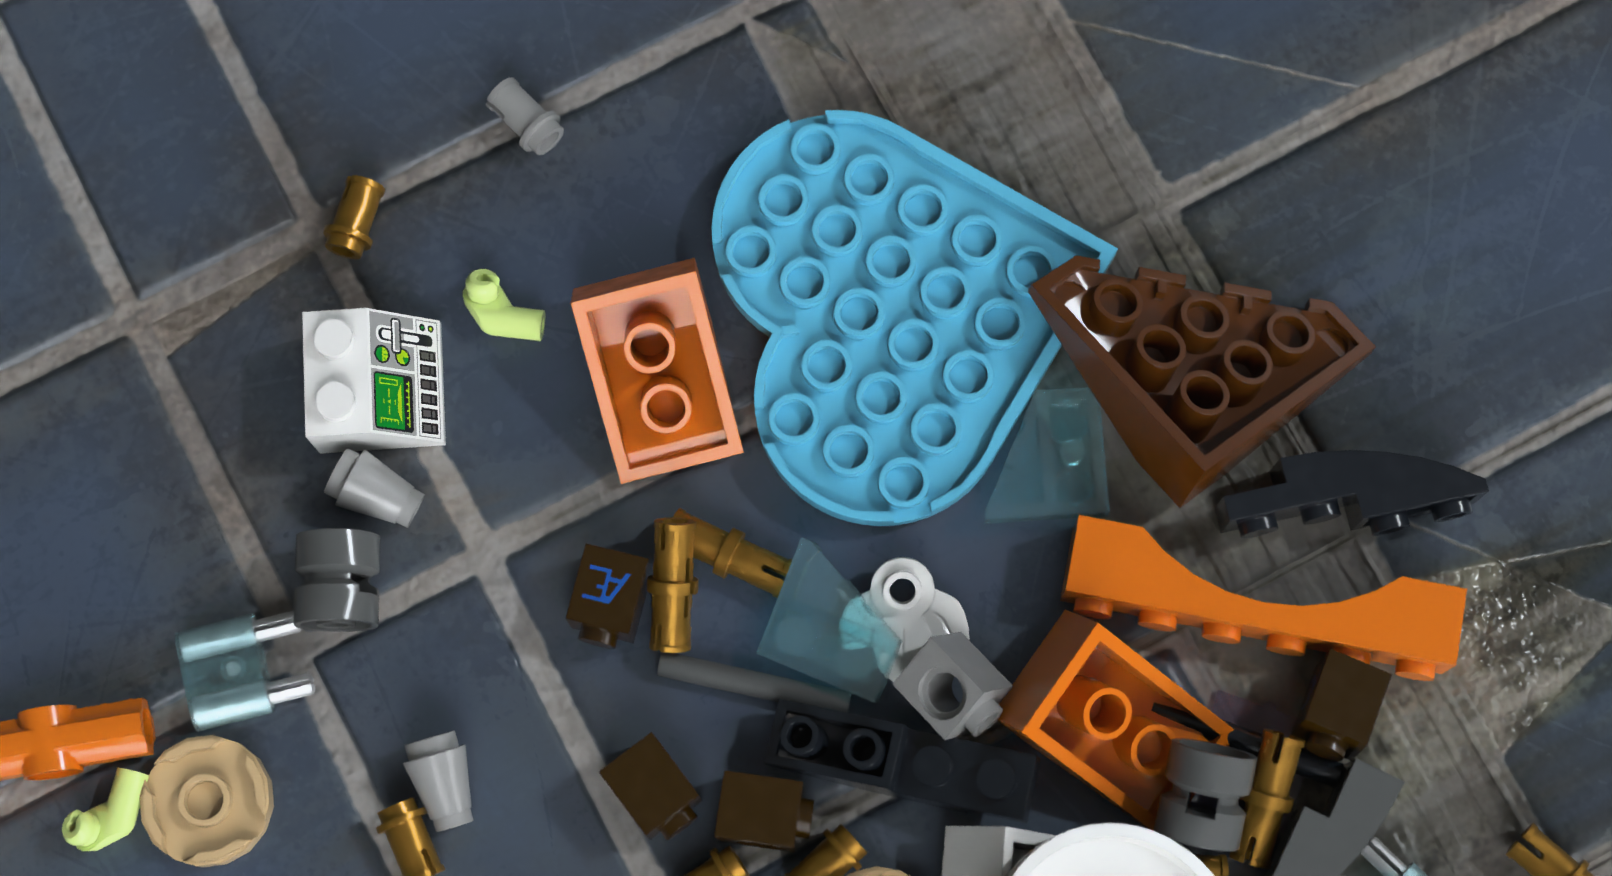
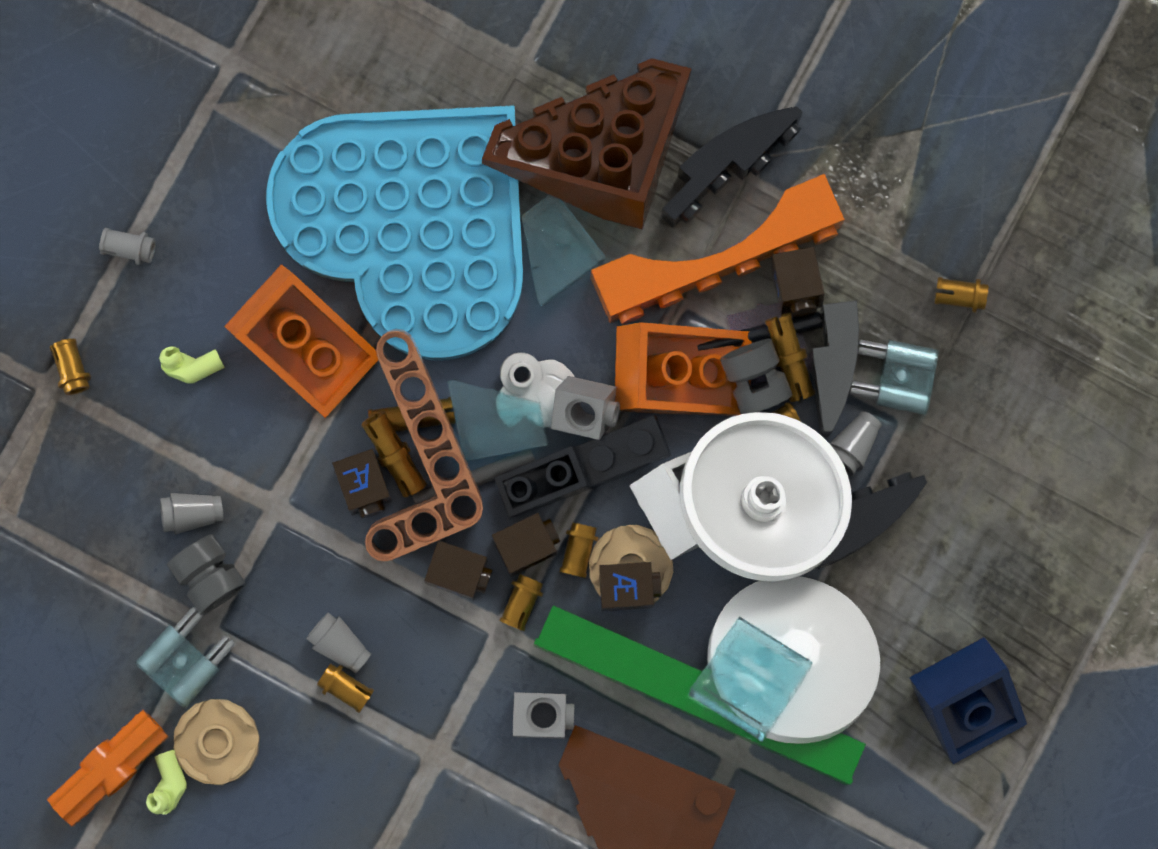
camera: 40 degrees left, 5 degrees up
(372, 380) = (147, 451): white slope -> none
(717, 609) = (430, 451): none -> nougat beam

